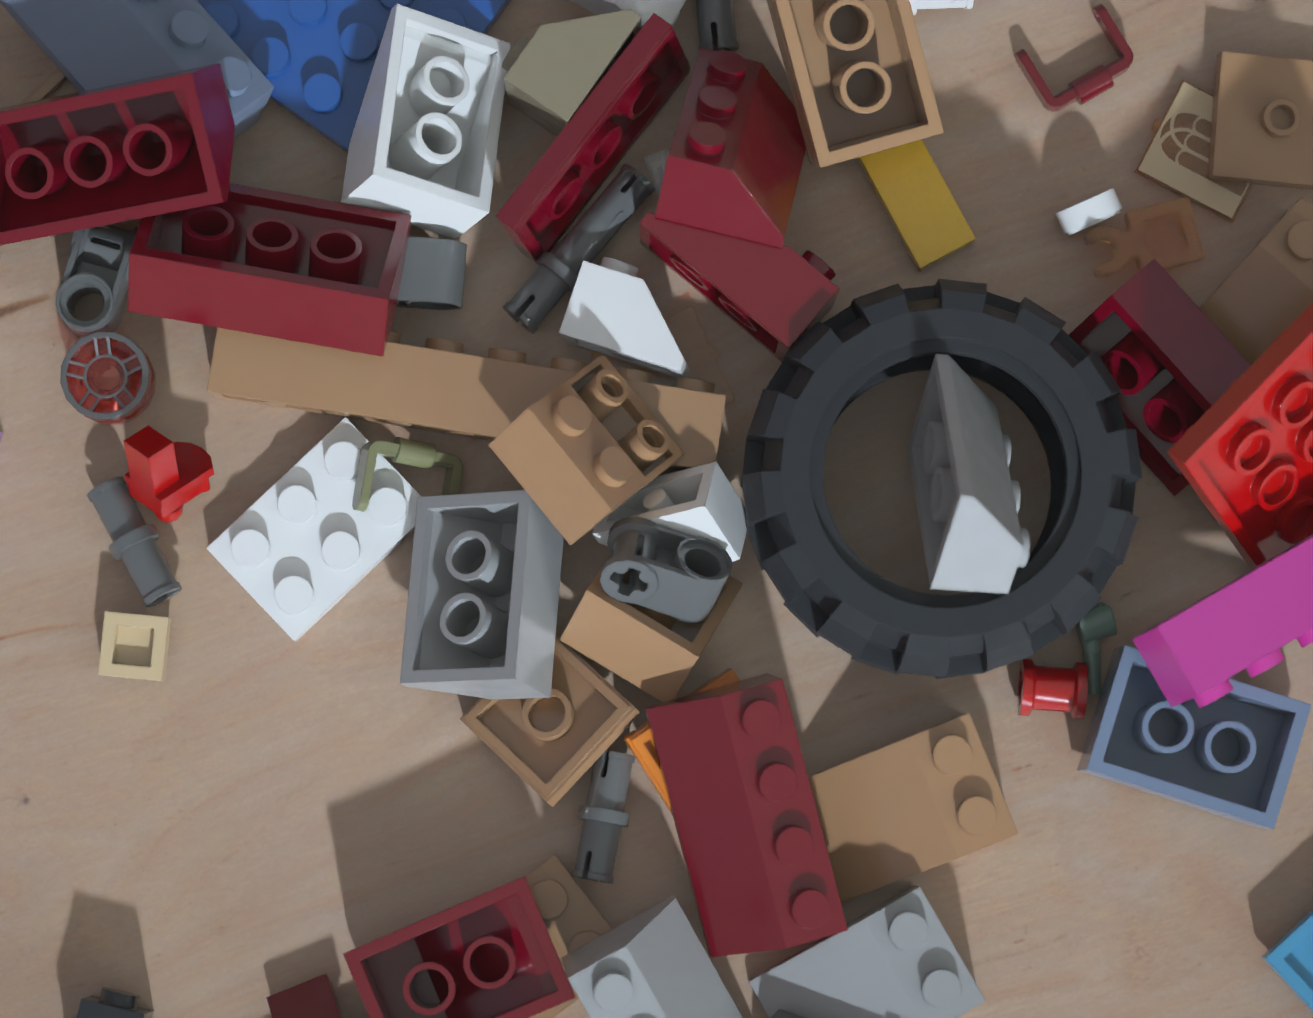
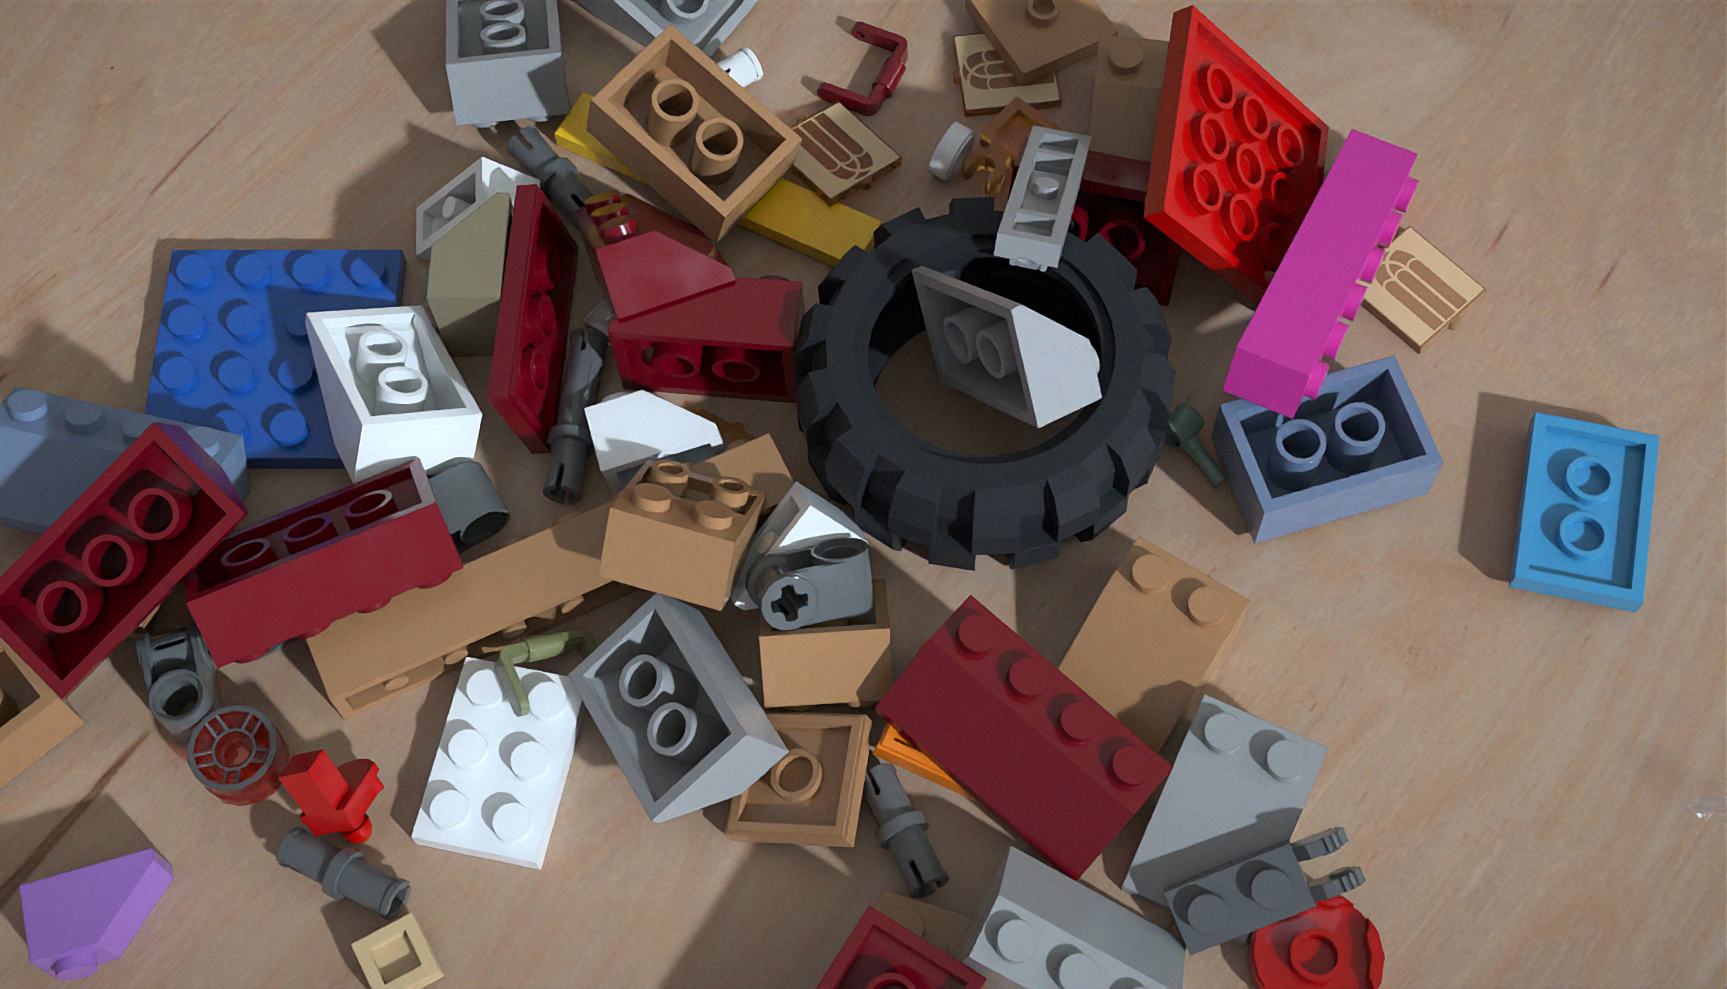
camera: 30 degrees left, 20 degrees down
(985, 136) = (840, 154): none -> piece
(1052, 689) = (1188, 492): red bush -> none
(1099, 366) = (1042, 198): none -> light grey hinge

